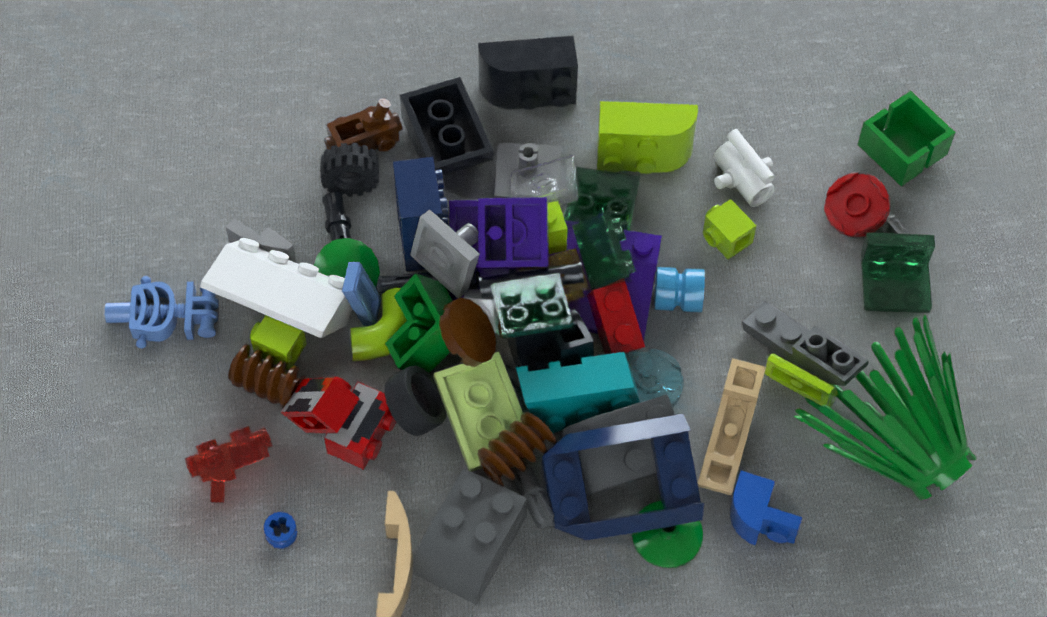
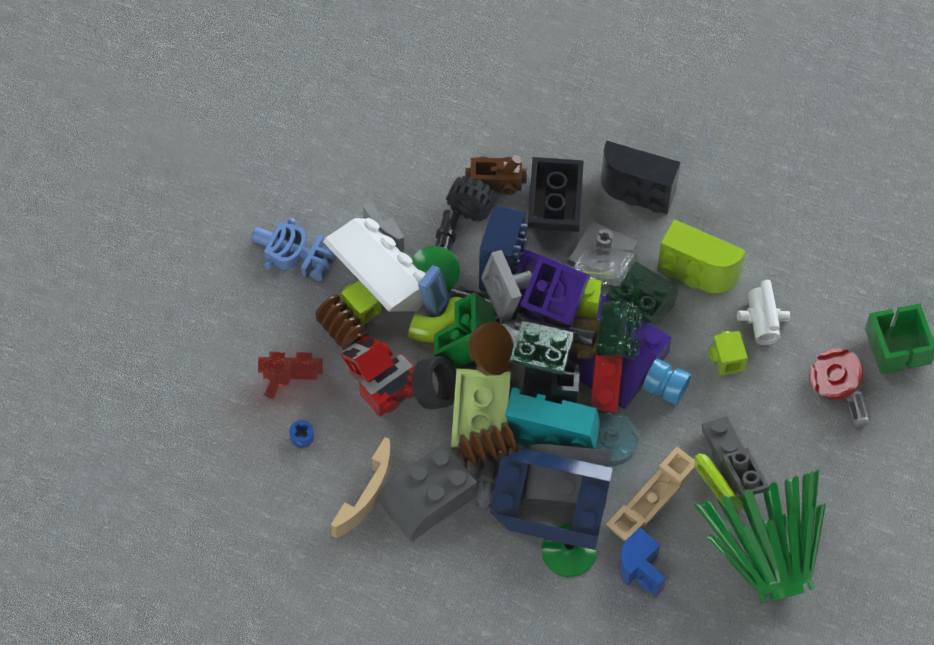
camera: 25 degrees right, 0 degrees up
(897, 272) = (838, 436): clear green bracket -> none

